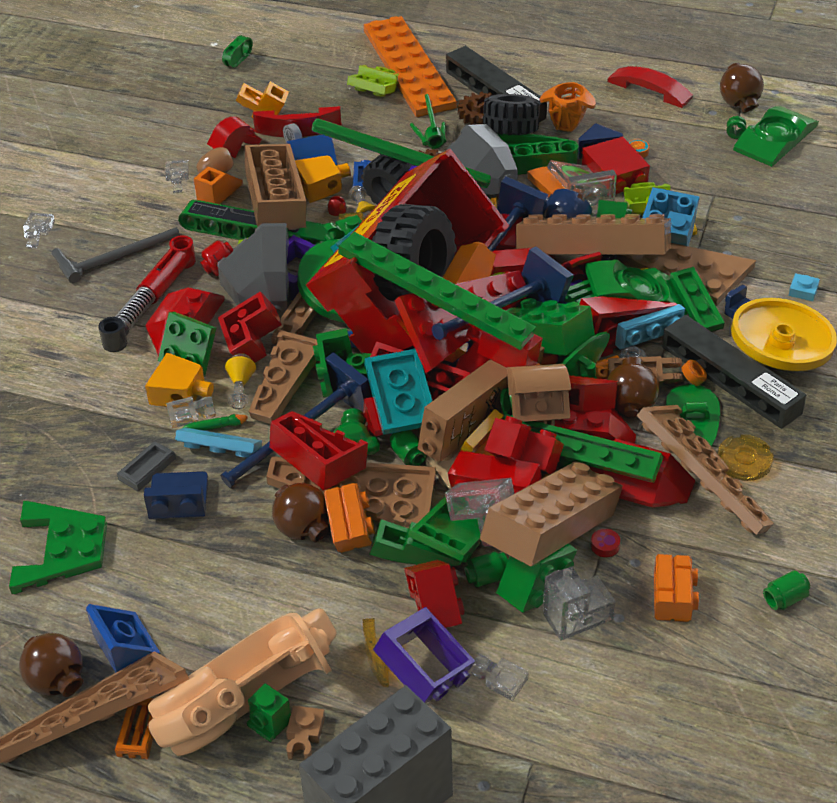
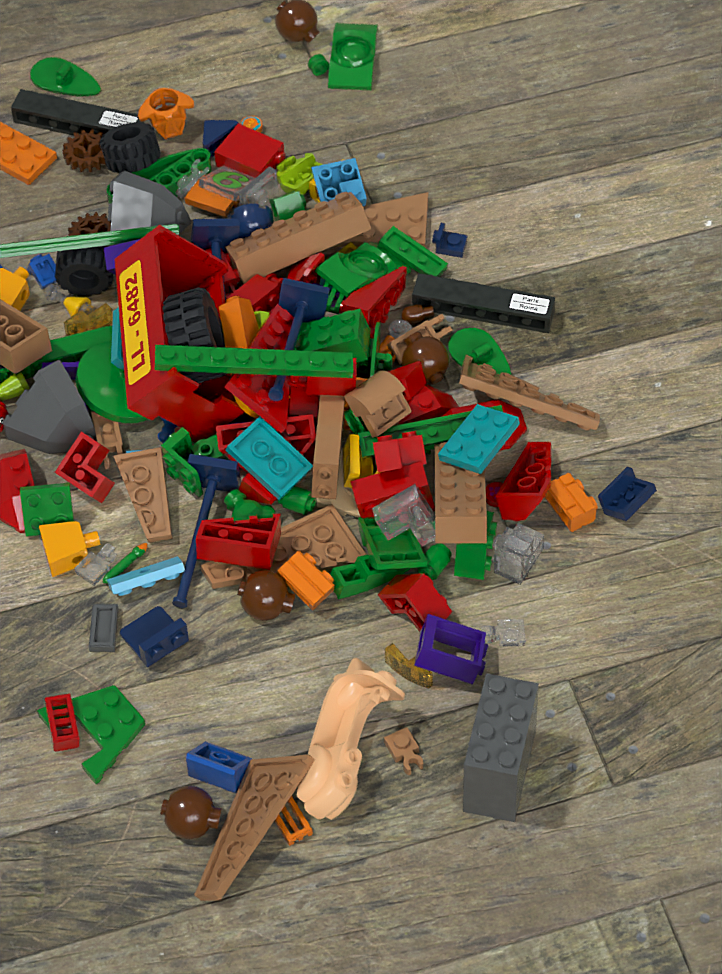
camera: 35 degrees left, 10 degrees up
(21, 537) = (64, 738): none -> red slope
(240, 370) = (107, 507): piece -> none
(268, 712) = (374, 751): green brick -> none
(336, 206) = (43, 313): red hinge -> none
(341, 227) = (85, 333): green plate -> none
(434, 136) = (67, 198): green plant -> none
(513, 58) = (63, 78): none -> green shield
(541, 159) = (187, 183): none -> clear plate
(608, 469) = (478, 439): none -> teal plate
(632, 546) = (526, 482): none -> red wedge
(646, 326) = (397, 297): medium azure tile -> none
(660, 348) = (415, 314): none -> reddish brown cylinder
(673, 91) = (210, 47): red slope -> none
(694, 372) = (457, 319): orange tile -> none
(738, 611) = (625, 495): none -> dark blue bracket
(746, 457) = (542, 370): clear yellow tile -> none
(783, 334) = (500, 251): yellow dish -> none
(787, 590) = (645, 460): green brick -> none
(804, 287) = (480, 198): medium azure plate -> none

